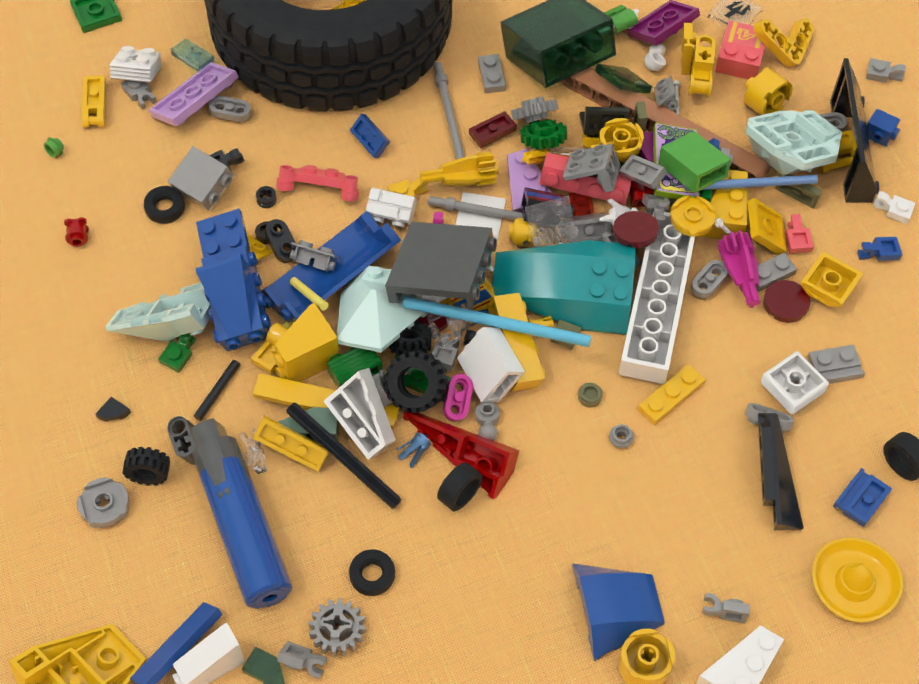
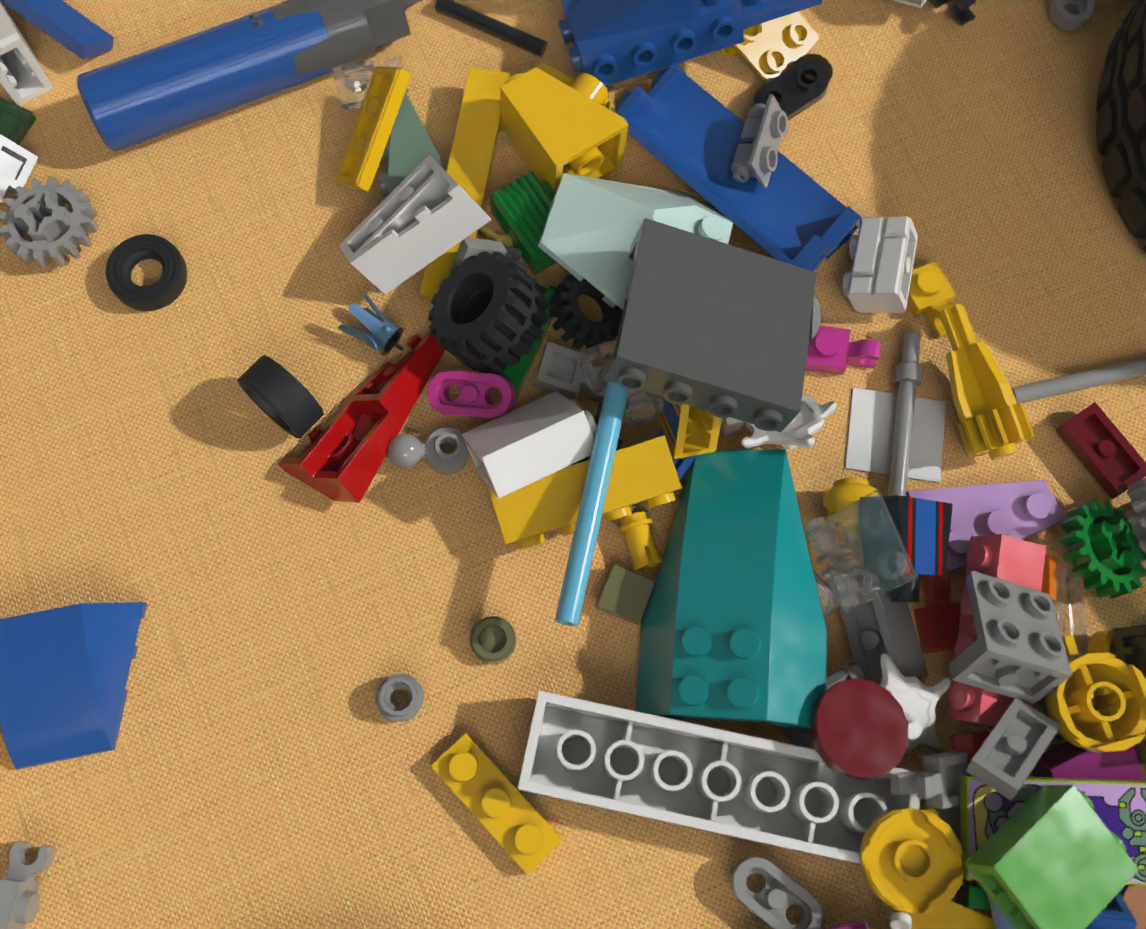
camera: 85 degrees right, 15 degrees up
(268, 192) = (891, 56): black bush -> none
(308, 293) = (667, 131): light yellow bar -> none
(310, 174) = (938, 142): coral plate -> none
(343, 455) = (346, 206): black axle -> none
(369, 136) = (1048, 224): blue plate -> none
(534, 157) = (1038, 527): yellow axle -> none

